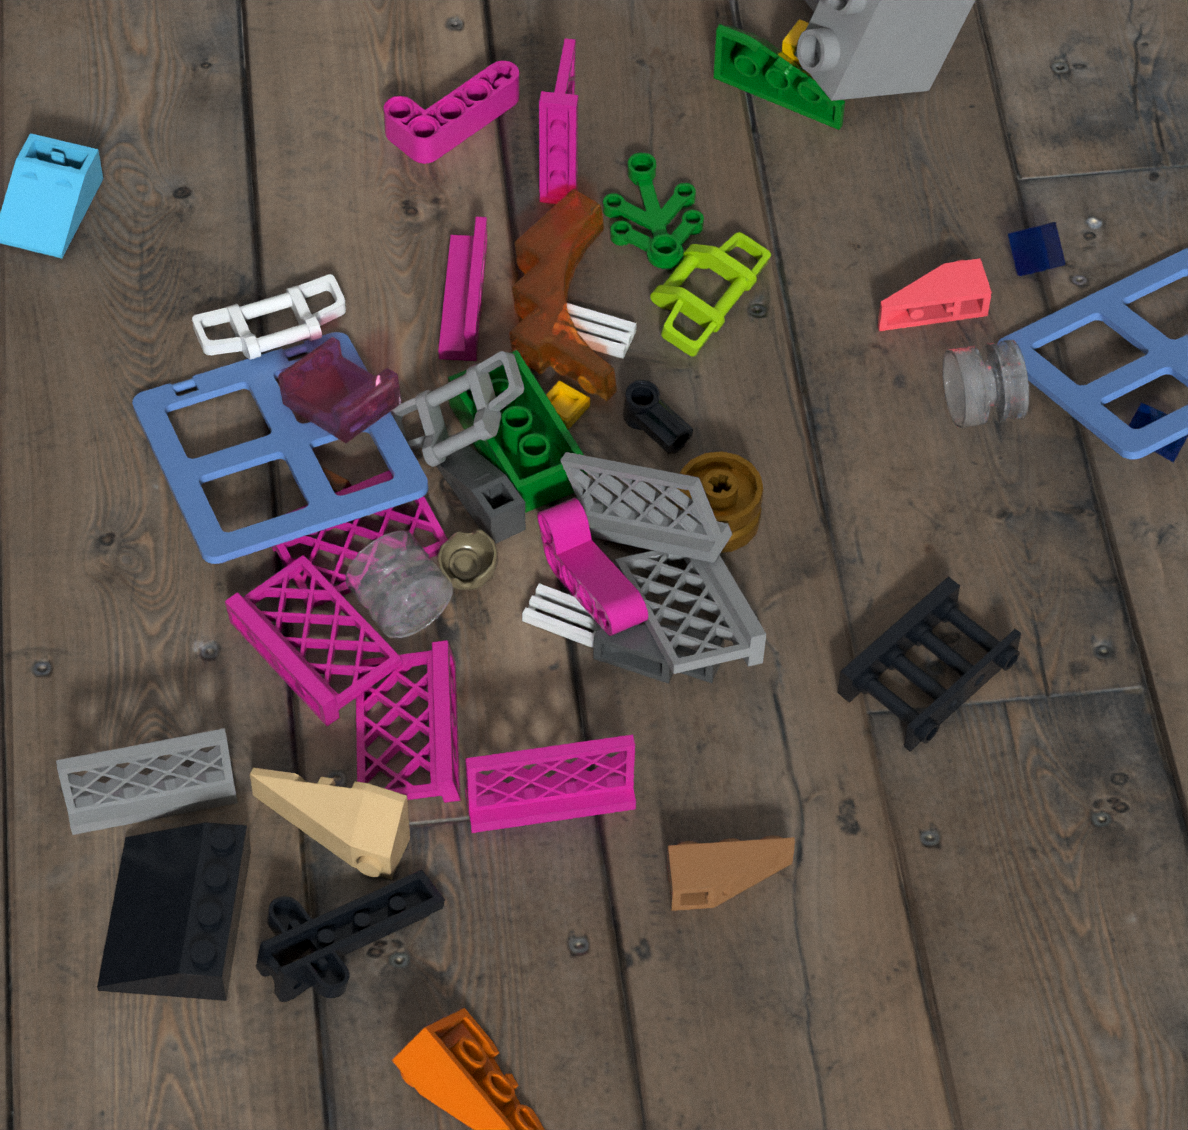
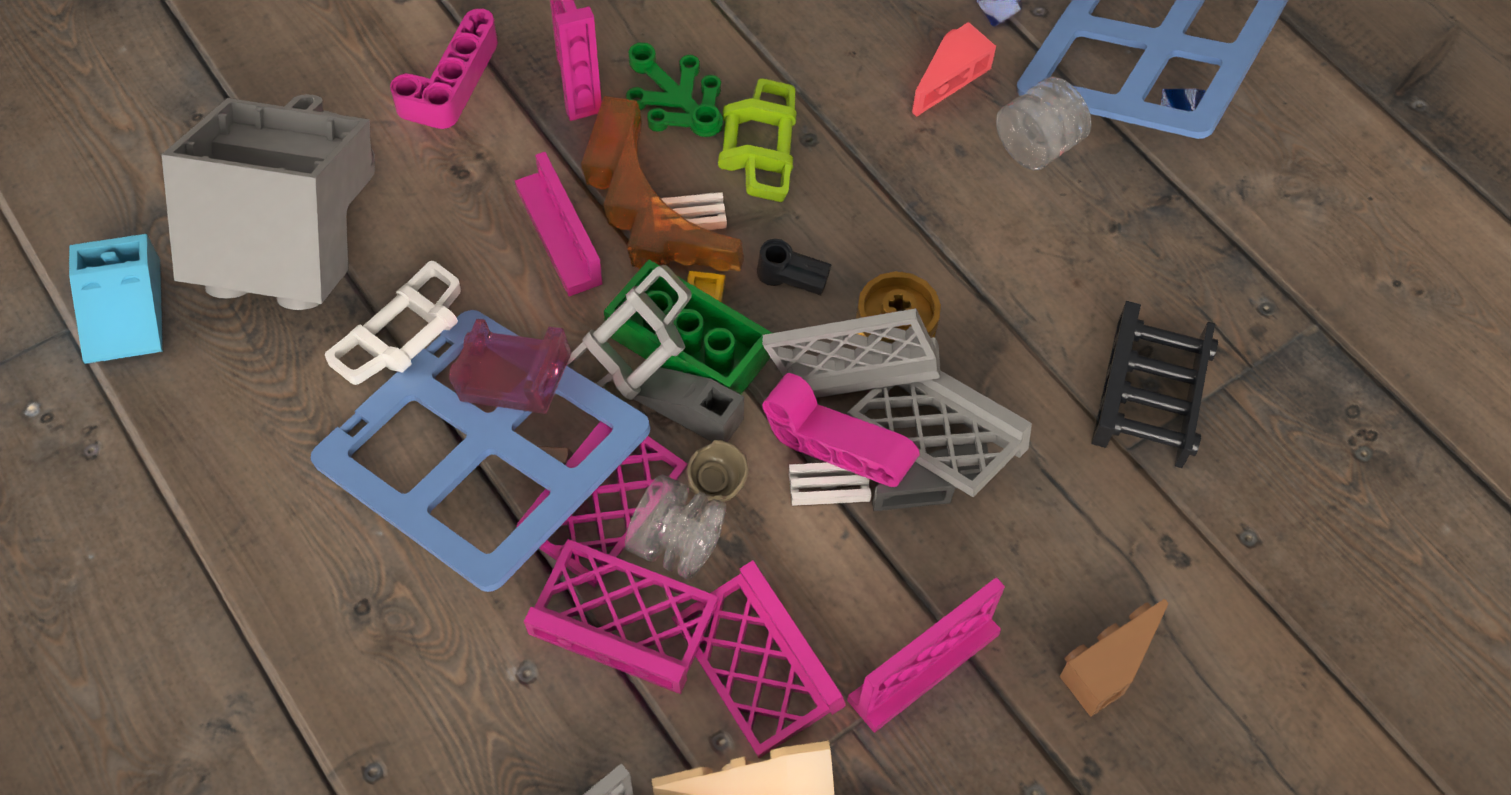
camera: 30 degrees left, 5 degrees up
(209, 154) = (266, 199): none -> light grey piece

